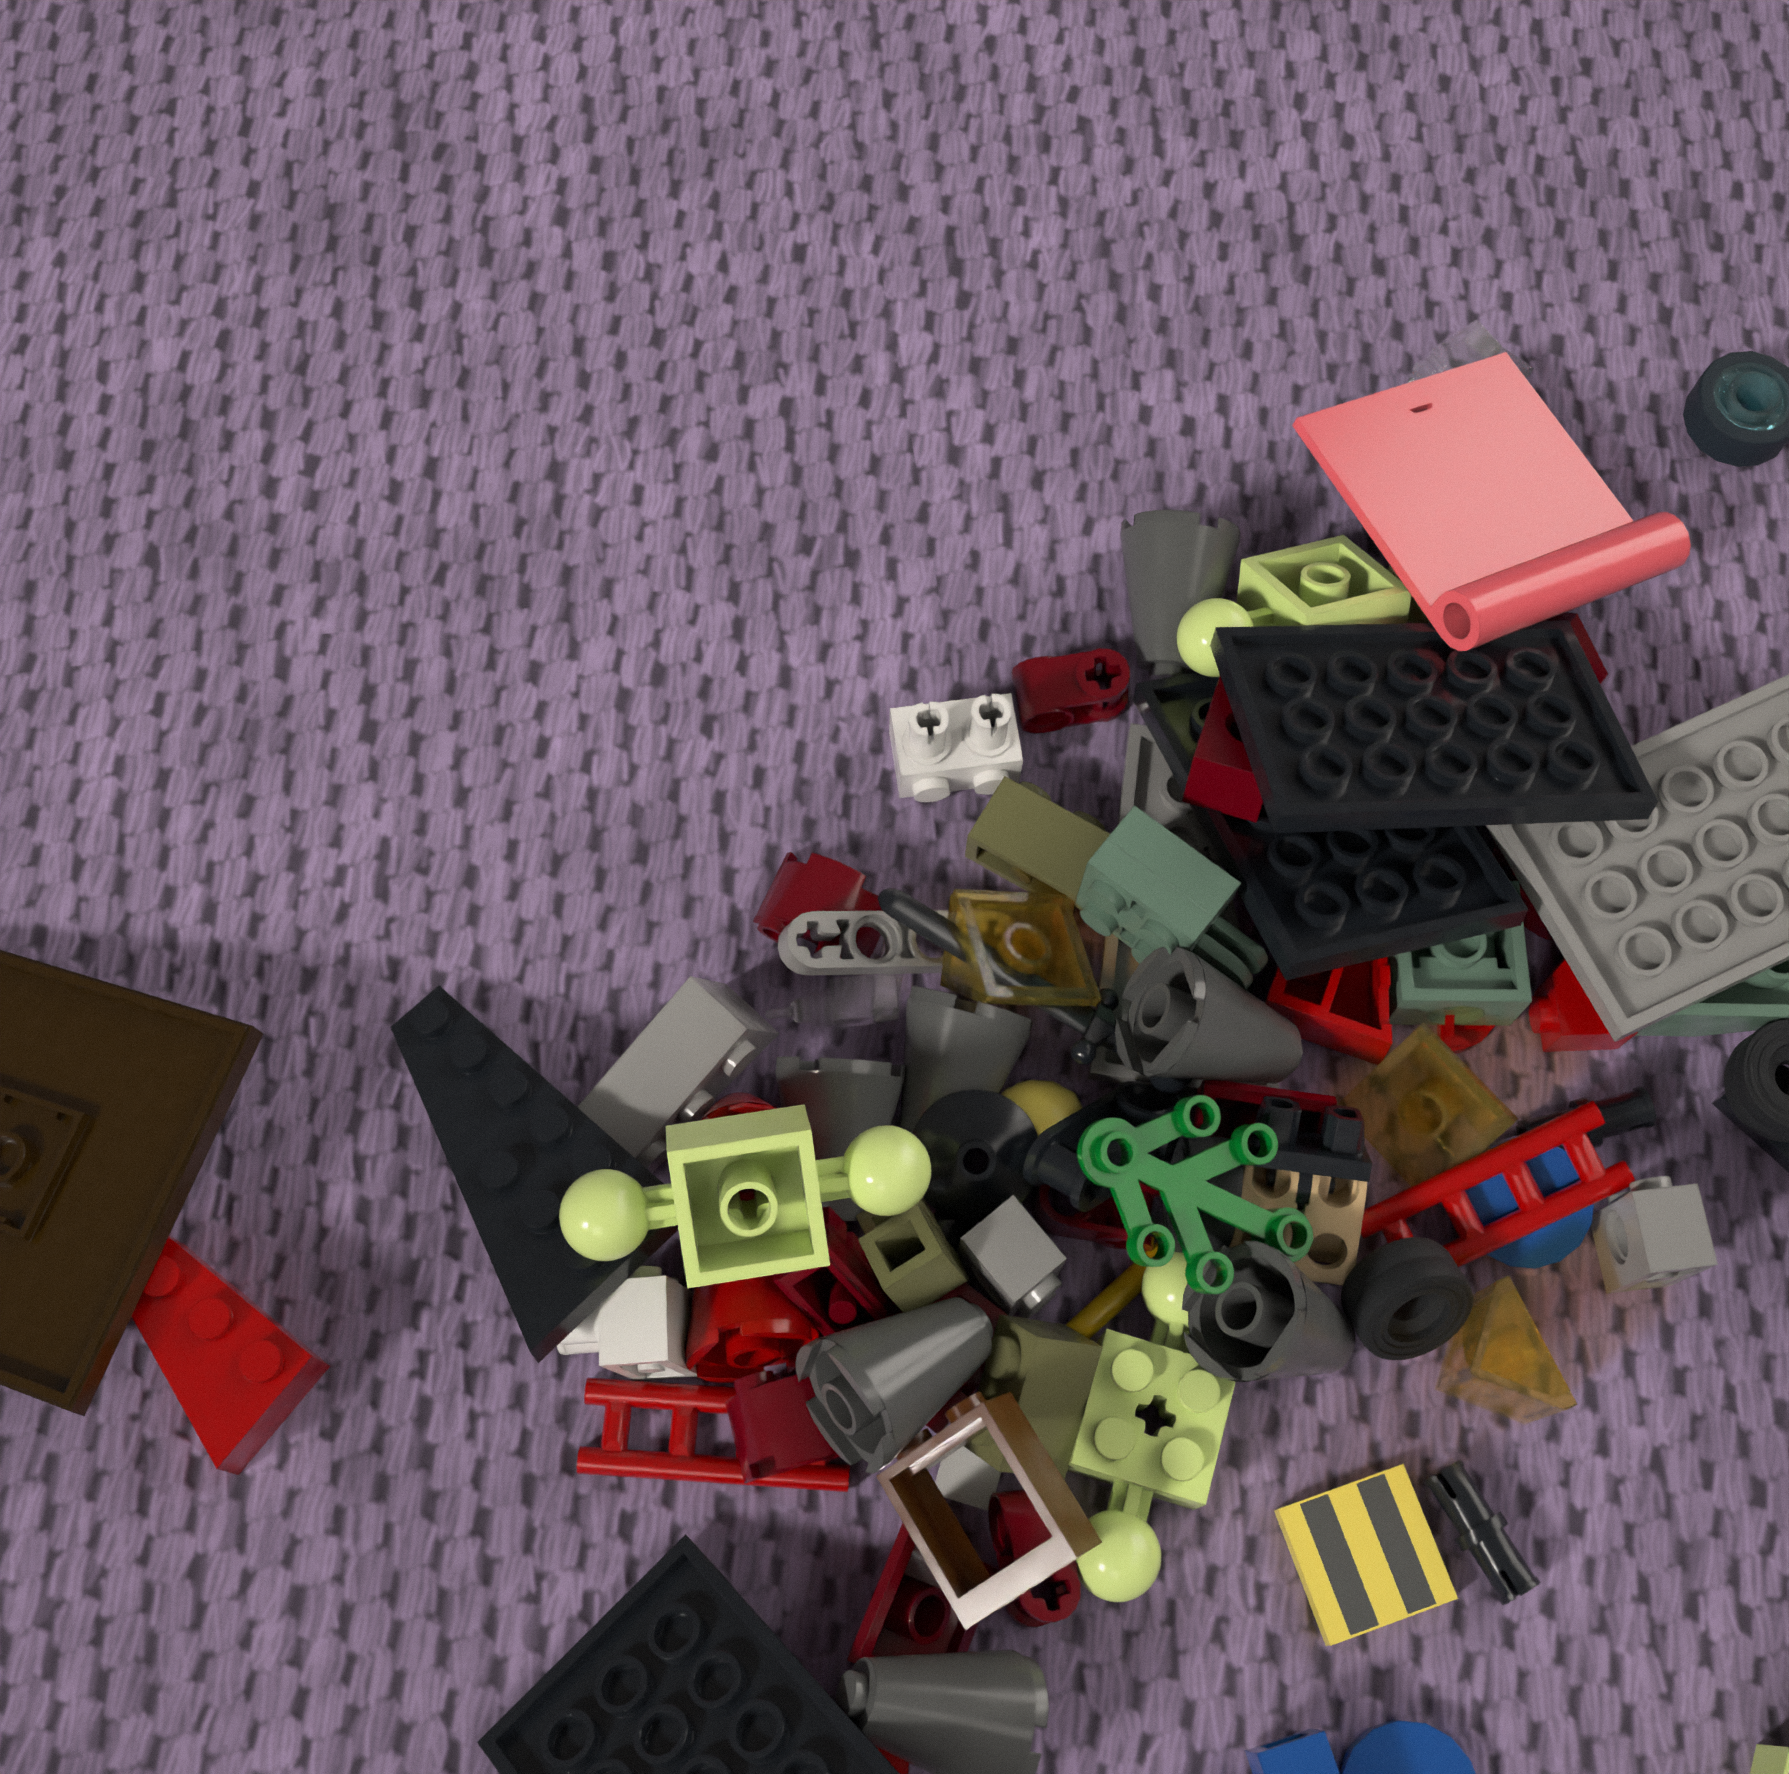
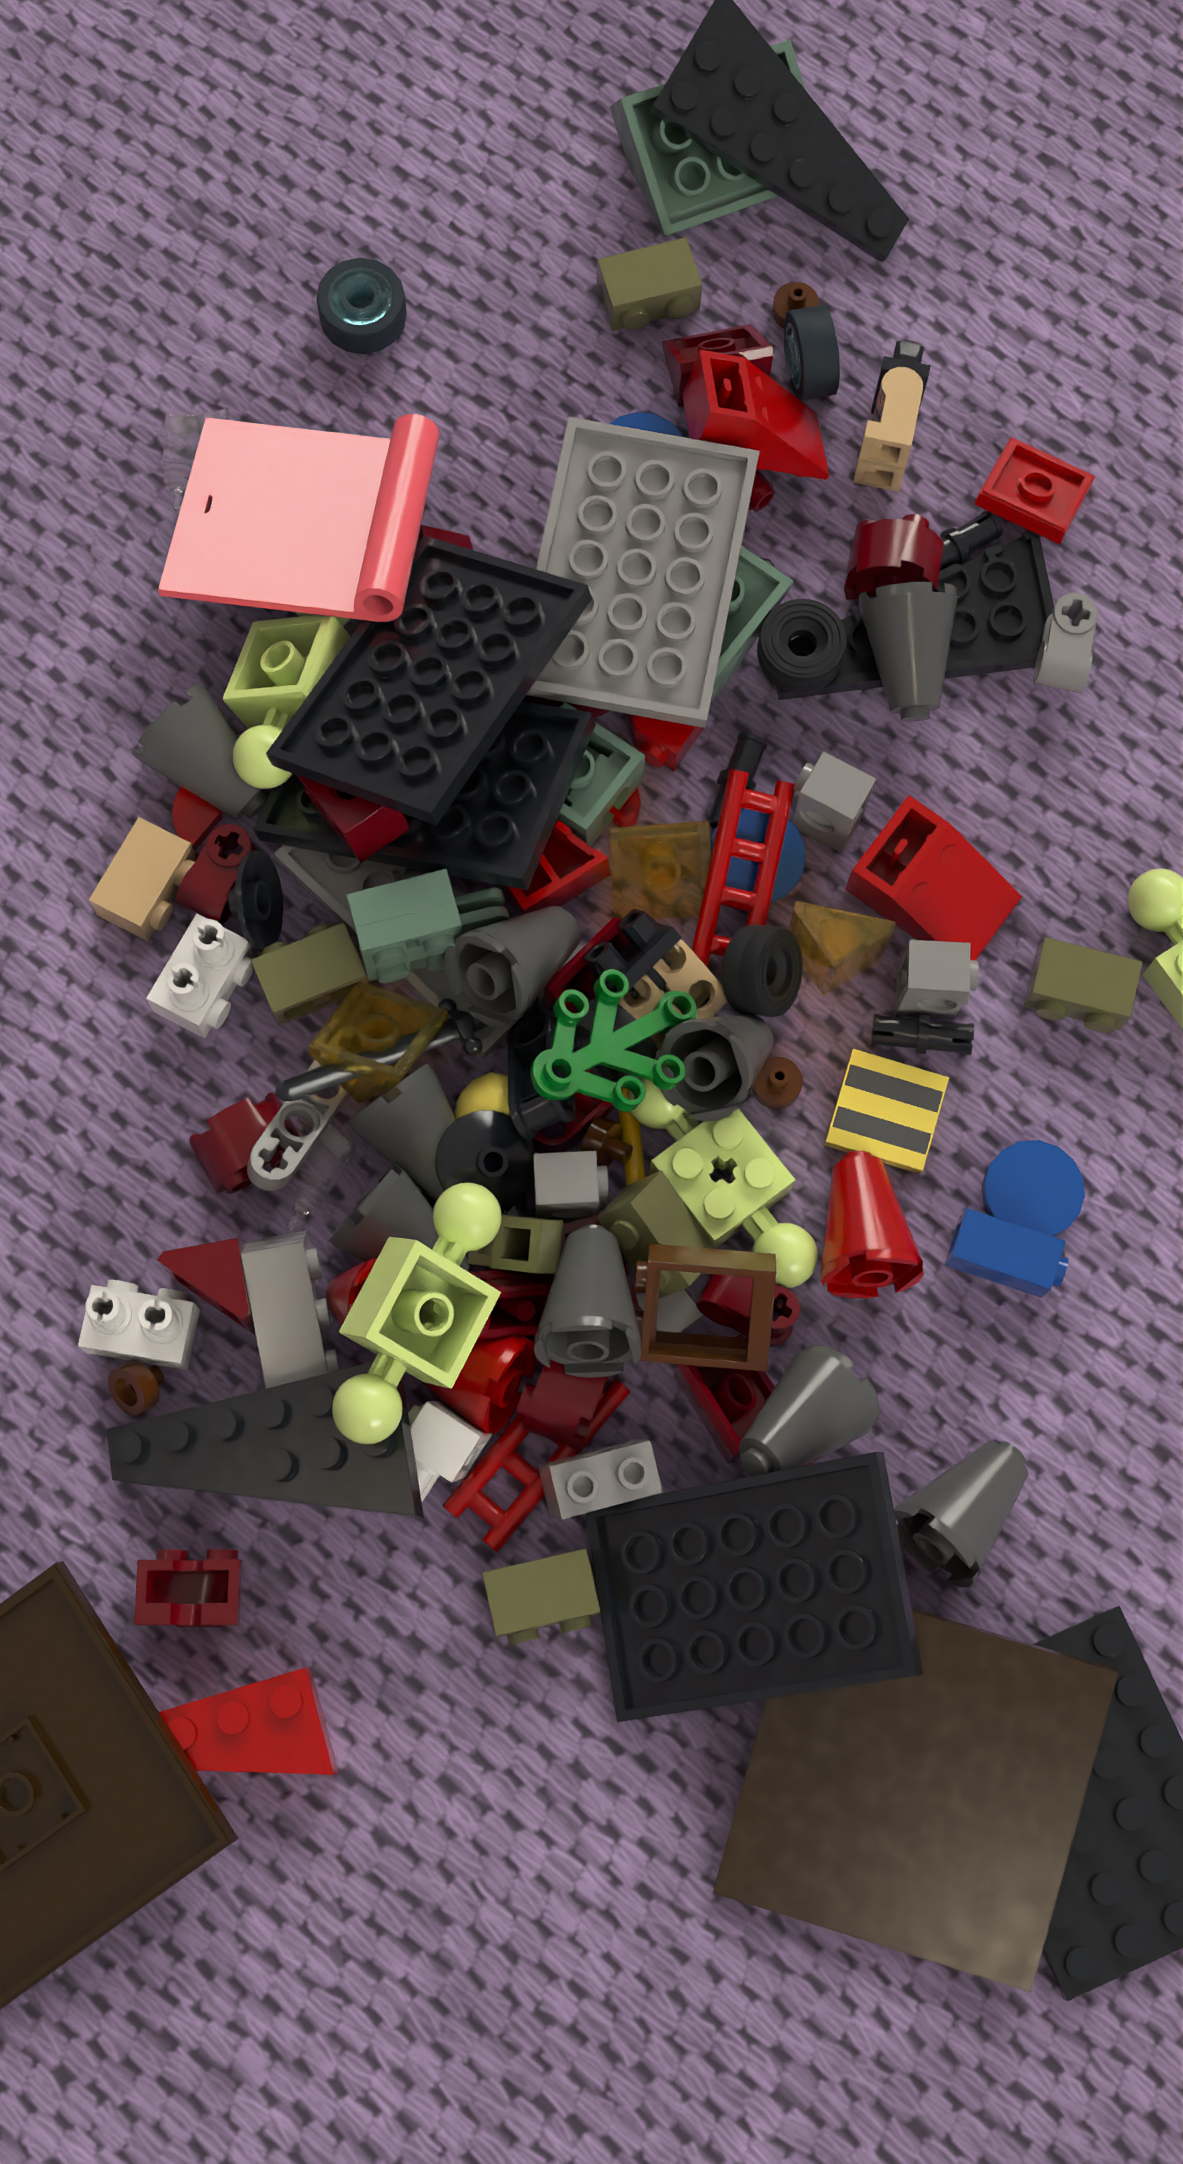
camera: 55 degrees left, 5 degrees up
(323, 1181) = (189, 1590): none -> dark red cylinder
(500, 981) = (135, 1386): none -> reddish brown tile
(558, 1555) = (542, 1595): none -> olive brick
(561, 939) = (139, 1325): none -> white brick
(653, 967) = (215, 1275): none -> dark red slope
(725, 1528) = (600, 1478): none -> light grey brick
(1007, 623) = (143, 879): none -> tan brick
(1071, 740) = (258, 899): none -> black dish
(1091, 1267) = (605, 1138): none -> reddish brown tile
(1107, 627) = (193, 817): none -> red tile
(1211, 1630) = (866, 1232): none -> red cone
(1290, 1418) = (776, 1093): none -> reddish brown tile
(1553, 1499) = (934, 979): none -> light grey brick
(1656, 1421) = (932, 881): none -> red slope
(1687, 1681) = (1082, 985): none -> olive brick

